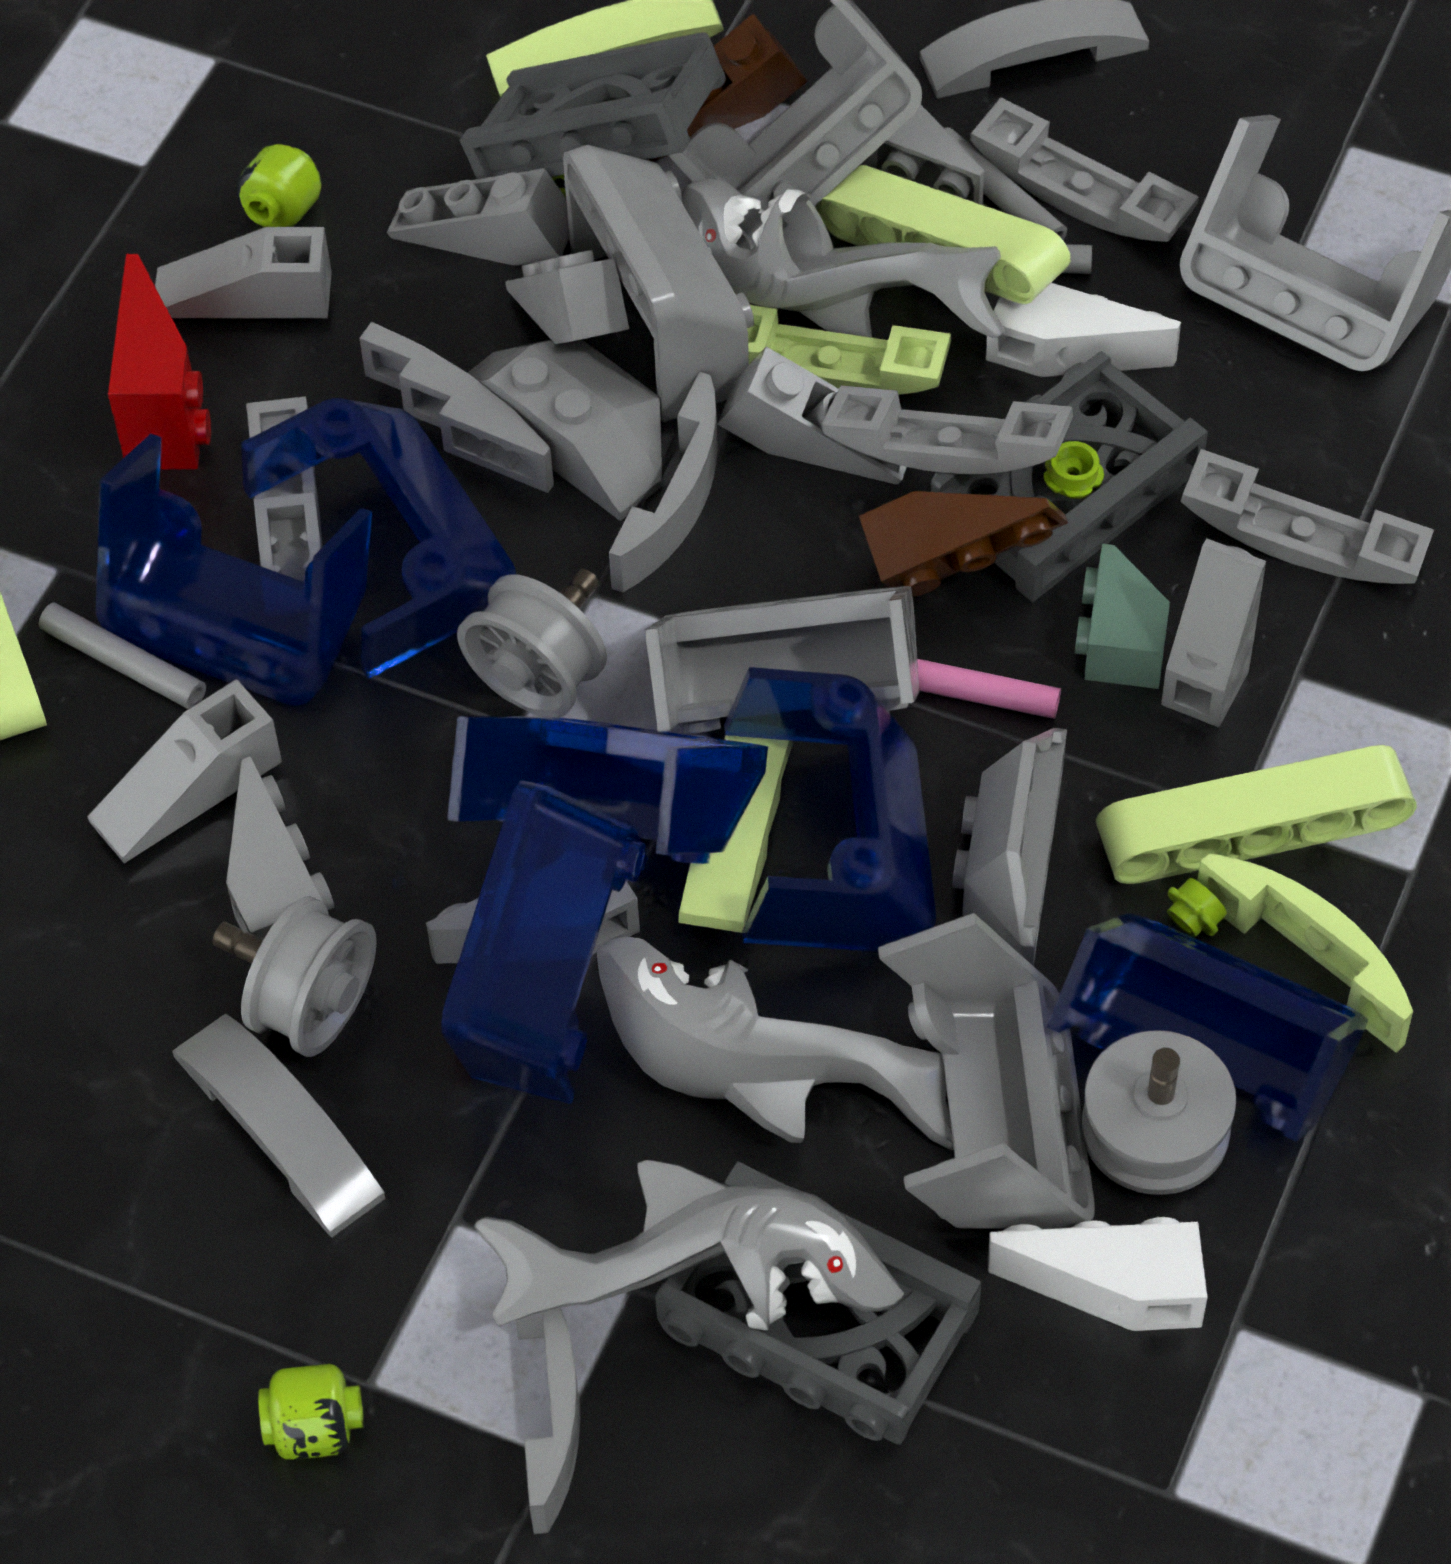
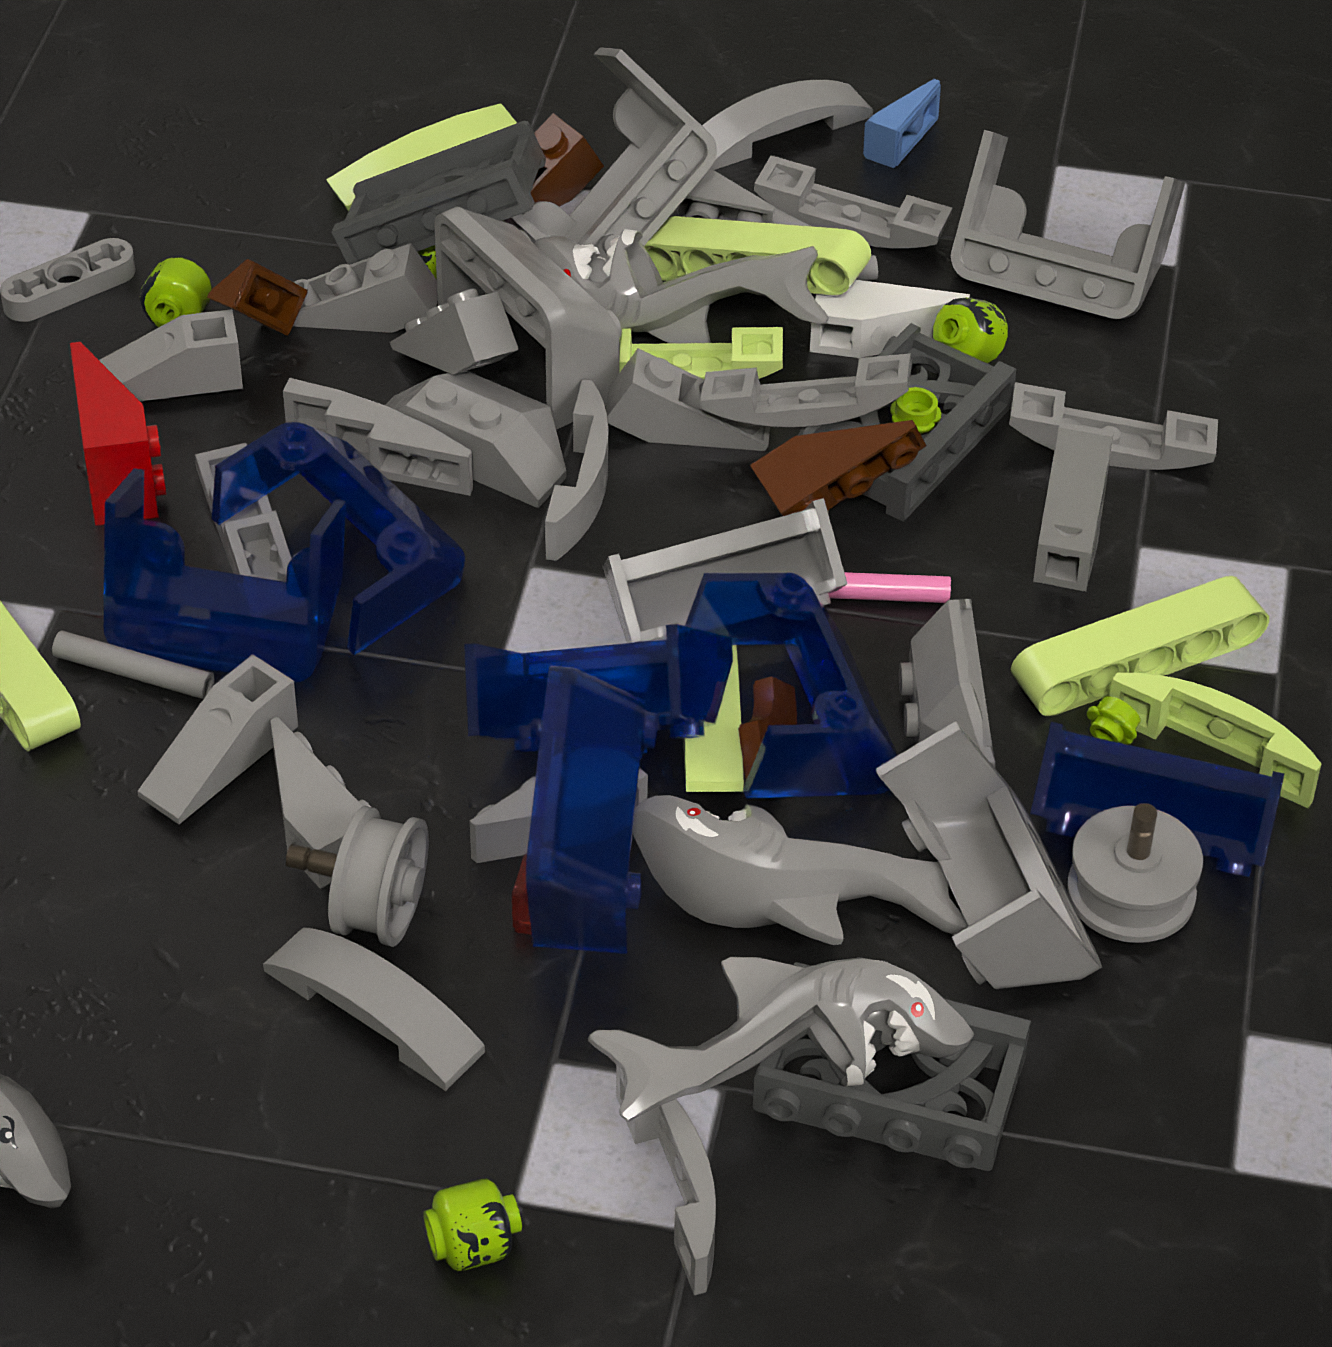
camera: 15 degrees left, 10 degrees down
(155, 167) = (26, 295): none -> light grey beam
(363, 212) = (260, 296): none -> reddish brown slope
(535, 642) = (501, 594): light grey wheel -> none
(802, 846) = (772, 706): none -> reddish brown tile
(1124, 1273) = (1135, 1002): white slope -> none
(1126, 626) = (990, 521): sand green slope -> none
(1173, 71) = (901, 125): none -> medium blue slope
(1173, 367) = (972, 328): none -> lime head

